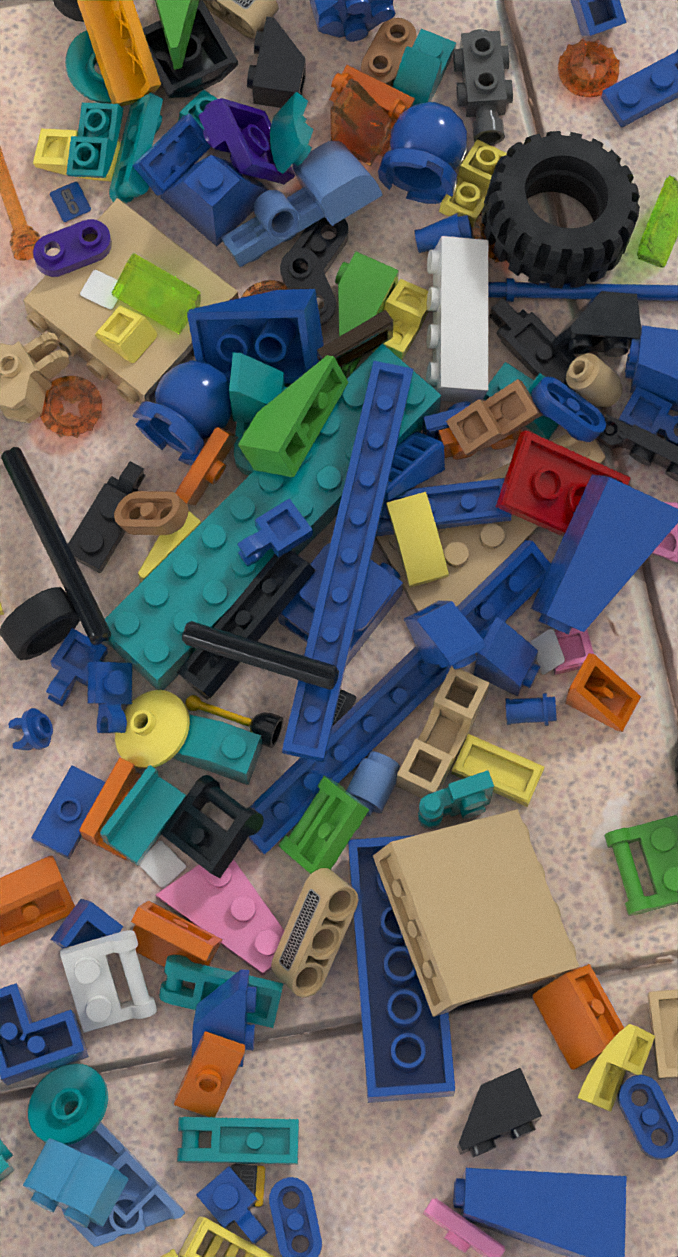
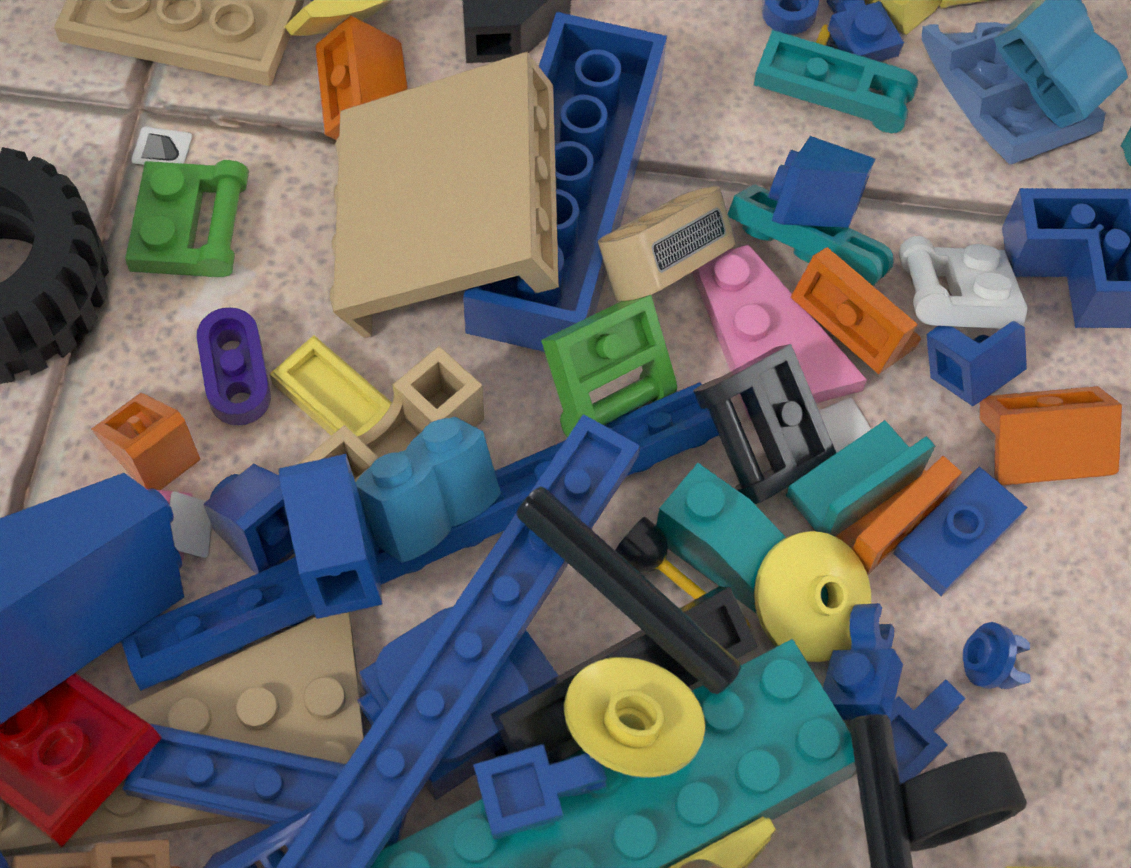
camera: 165 degrees left, 10 degrees down
(59, 1094) = (1051, 144): teal dish -> none
(209, 1074) = (855, 136): orange plate -> none
(226, 605) = (634, 717): none -> light yellow dish
(374, 781) = (519, 419): medium blue brick -> none
(408, 692) = (428, 488): none -> dark azure brick
(417, 539) = (306, 734): light yellow slope -> none
(461, 797) = (396, 338): teal plate -> none
(531, 710) = (242, 448): blue pin -> none
(569, 764) = (234, 369): none -> dark purple plate

